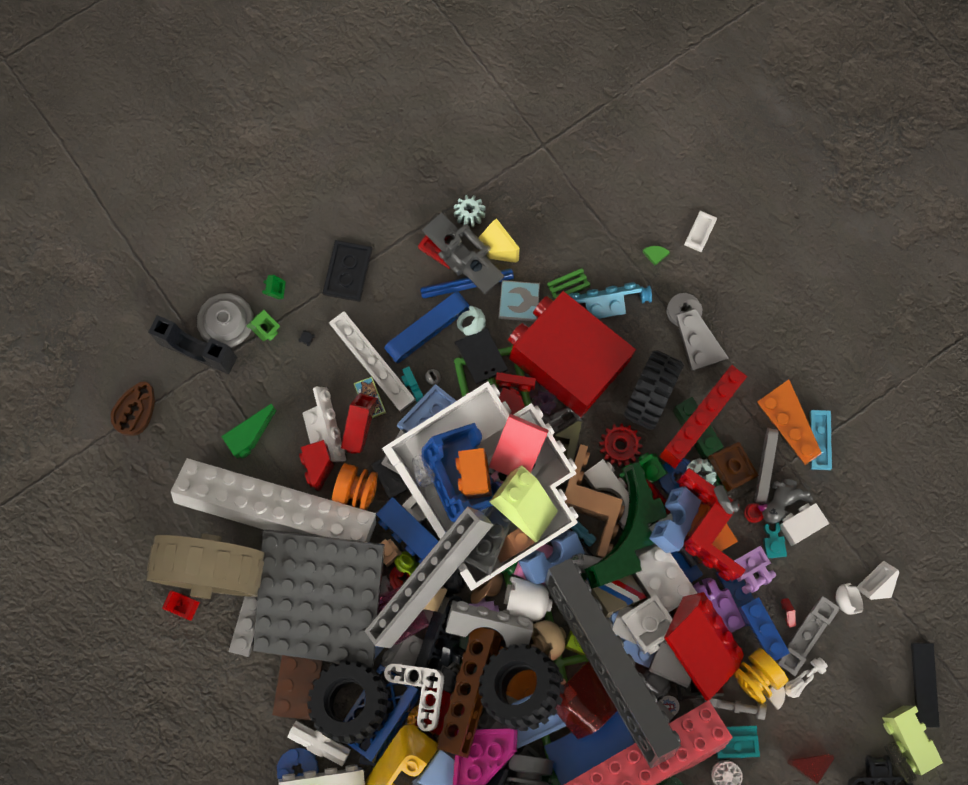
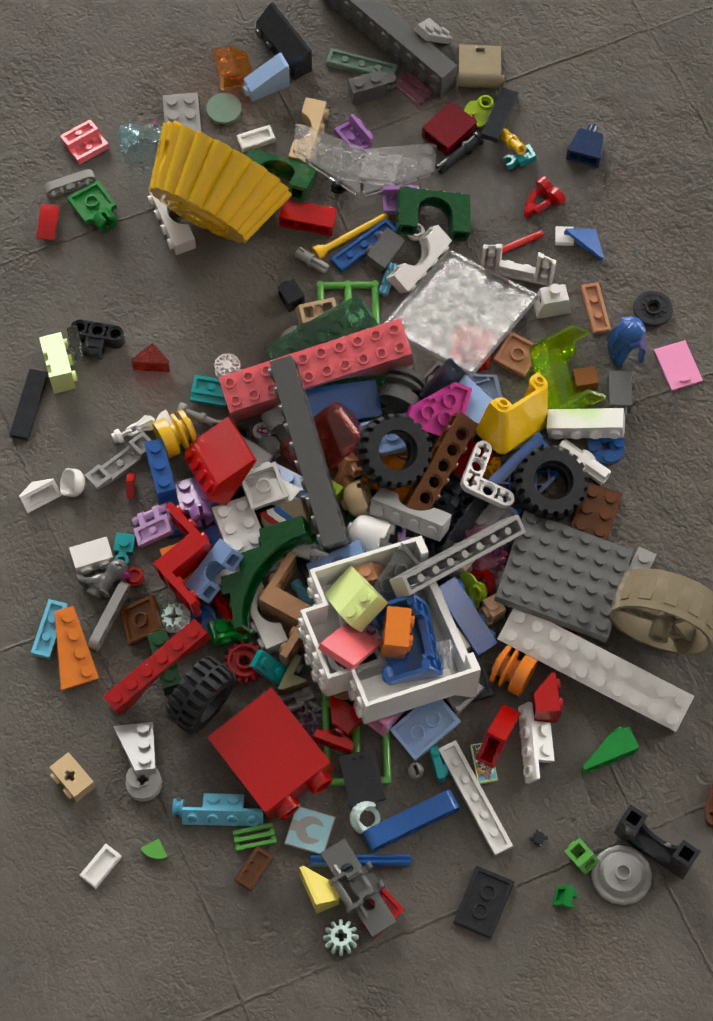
camera: 170 degrees left, 10 degrees down
(561, 255) = (254, 868): none -> reddish brown plate
(567, 664) = (347, 471): none -> nougat hips
(596, 441) = (268, 667): none -> teal plate
(724, 501) = (167, 566): dark grey arm -> none
(755, 310) = (66, 767): none -> tan brick

